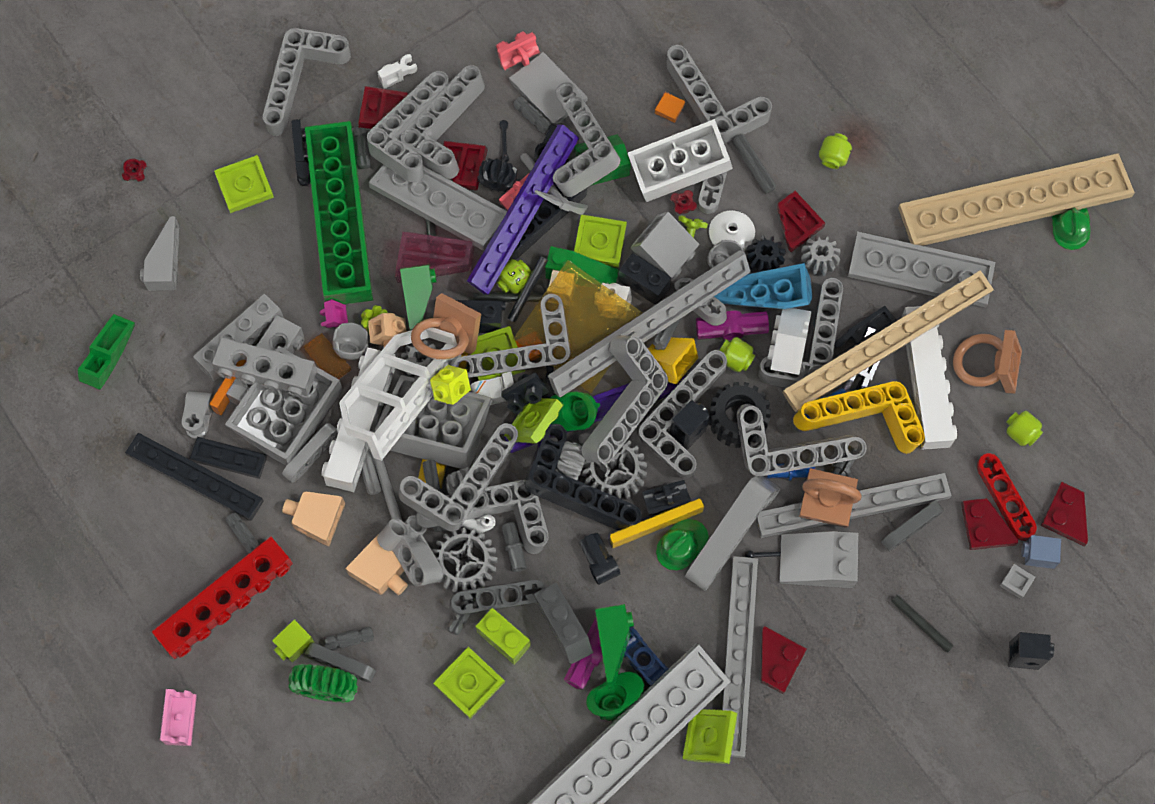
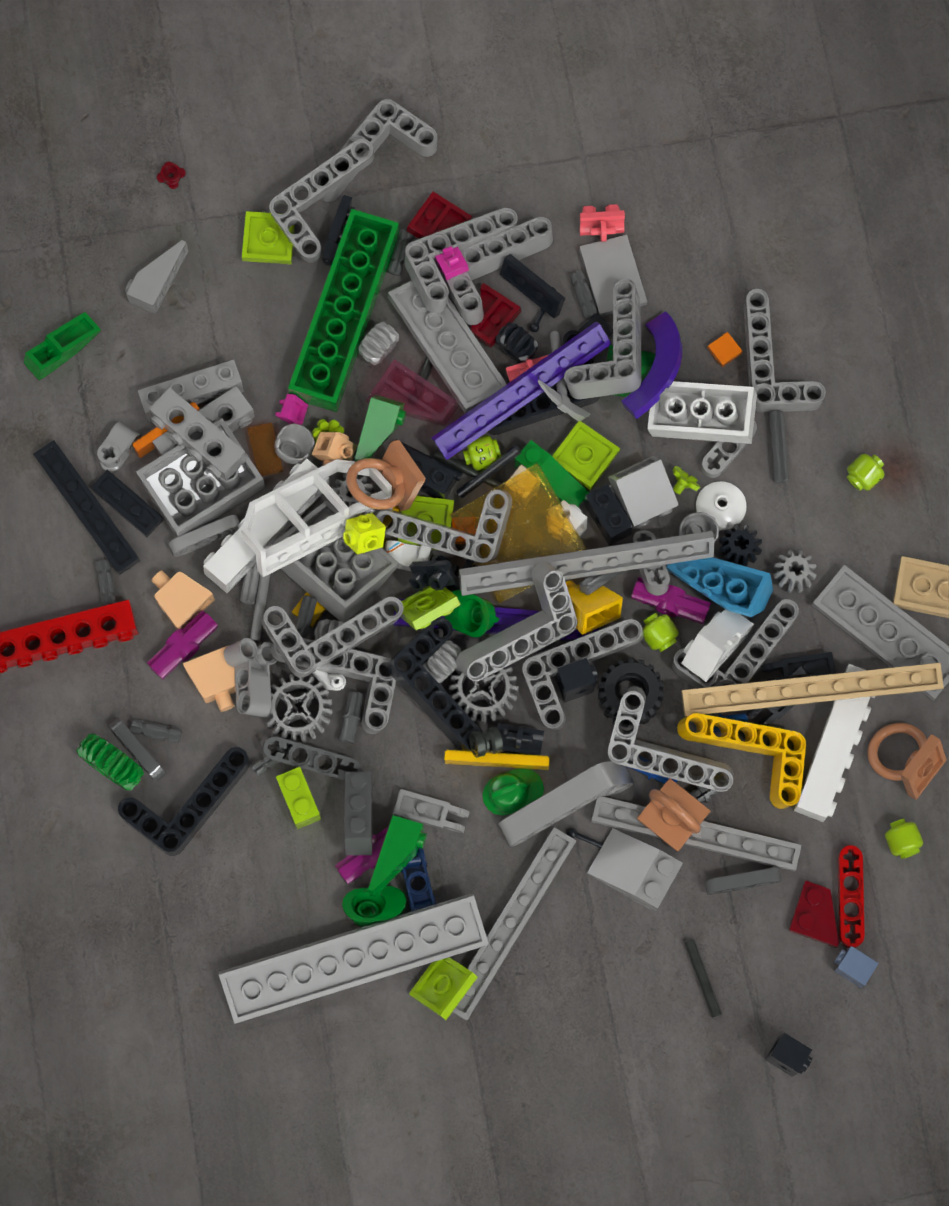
camera: 25 degrees right, 5 degrees up
(267, 127) = (315, 193): none -> light grey beam
(292, 642) = (101, 708): lime brick -> none
(336, 554) = (182, 645): none -> magenta piece
(381, 226) = (378, 343): none -> light grey gear
(394, 73) = (468, 190): white plate -> none
(411, 133) = (451, 262): none -> dark pink tile
(413, 691) = (190, 808): none -> black beam
(469, 682) = (246, 826): lime plate -> none
(487, 125) = (532, 286): none -> black tile
(602, 565) = (425, 773): black piece -> none
(620, 593) = (428, 811): none -> light grey hinge
(631, 137) = (664, 367): none -> dark purple tile
(642, 510) = (485, 742): none -> pearl dark grey wheel
(681, 208) = (691, 460): dark red plate -> none
(779, 659) = (547, 946): dark red wing -> none
(798, 220) = (791, 525): dark red wing -> none
(1017, 581) = (816, 983): light grey plate -> none
(1068, 514) = (902, 943): dark red wing -> none

